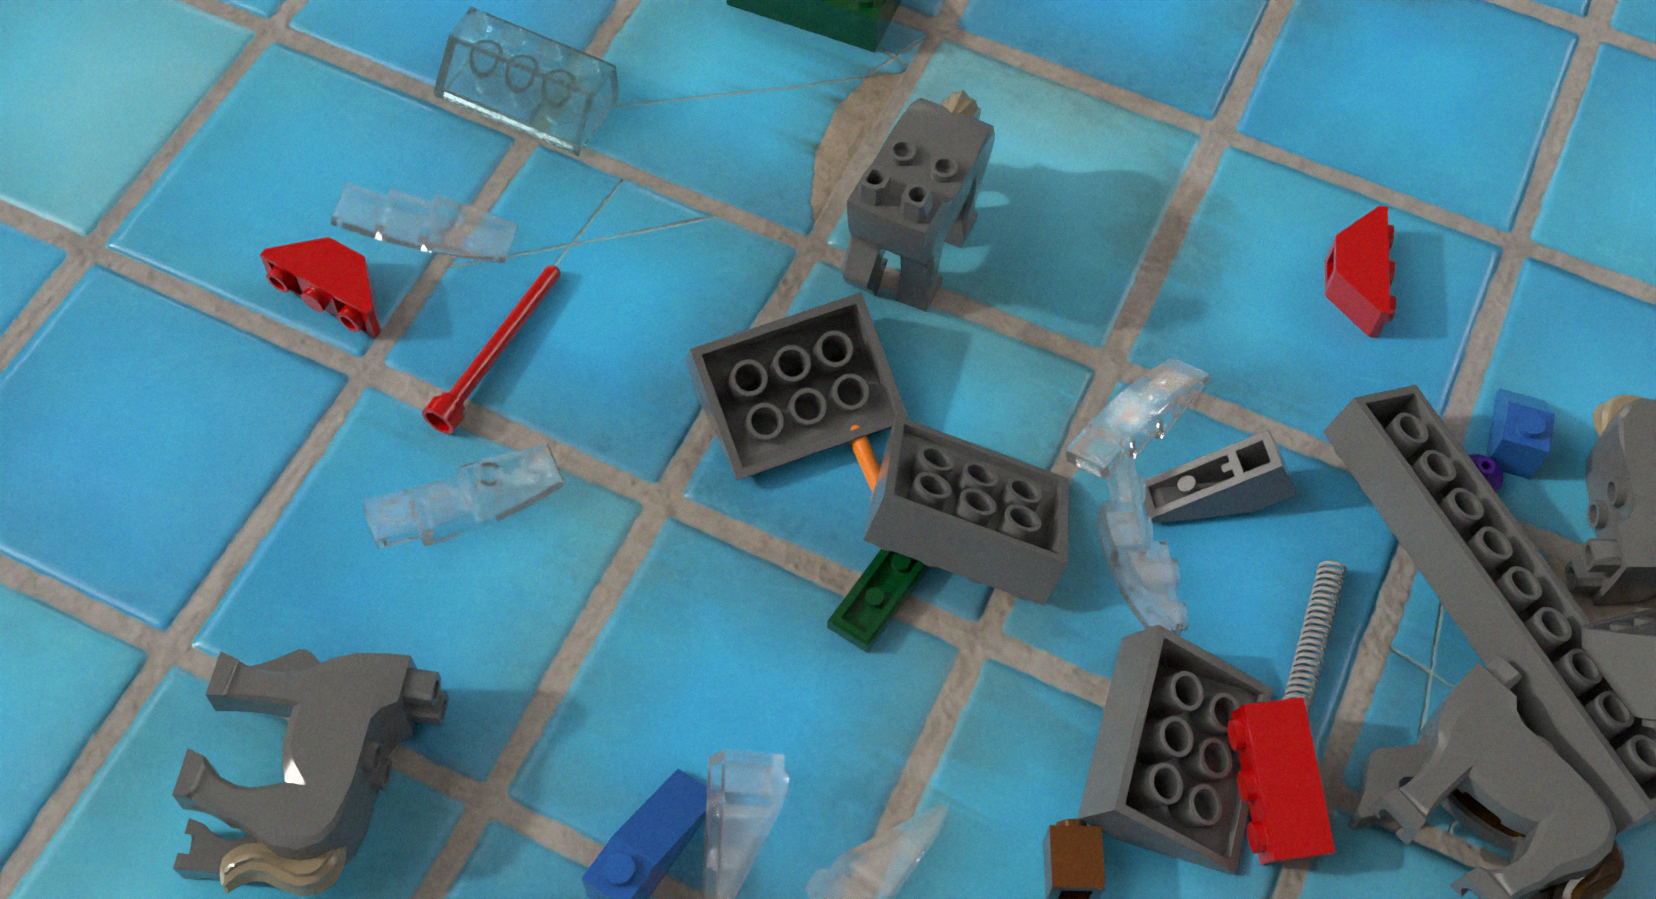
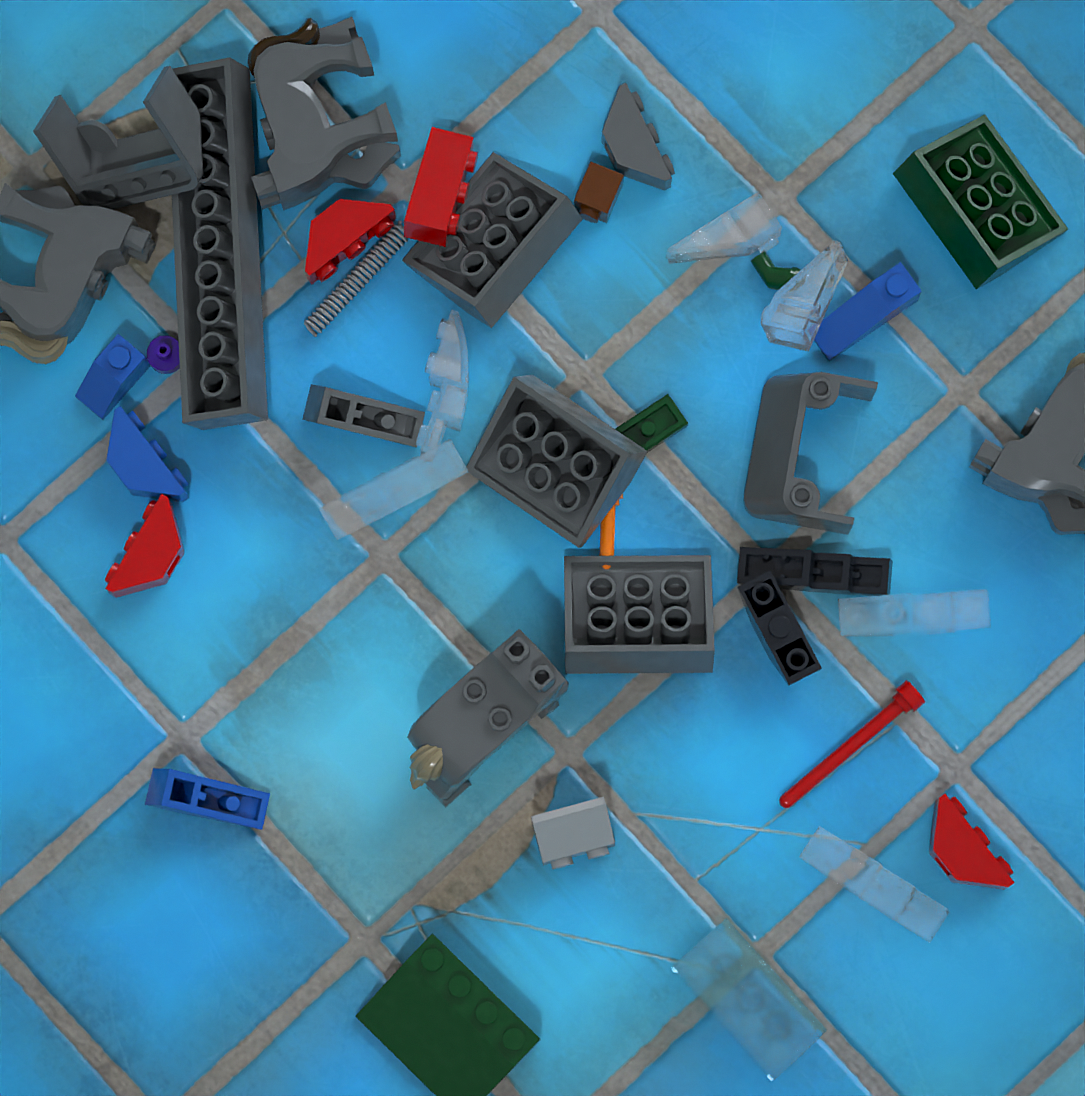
camera: 155 degrees left, 20 degrees up
(603, 509) = (817, 571): none -> black slope
(620, 417) = (778, 628): none -> black slope
(707, 686) = (770, 486): none -> dark grey windscreen
(776, 161) = (573, 832): none -> light grey slope
(794, 847) = (772, 276): none -> dark green arm
(1166, 76) = (207, 798): none -> blue slope
(1365, 682) = (342, 234): none -> red slope
(1431, 351) = (140, 462): none -> blue slope

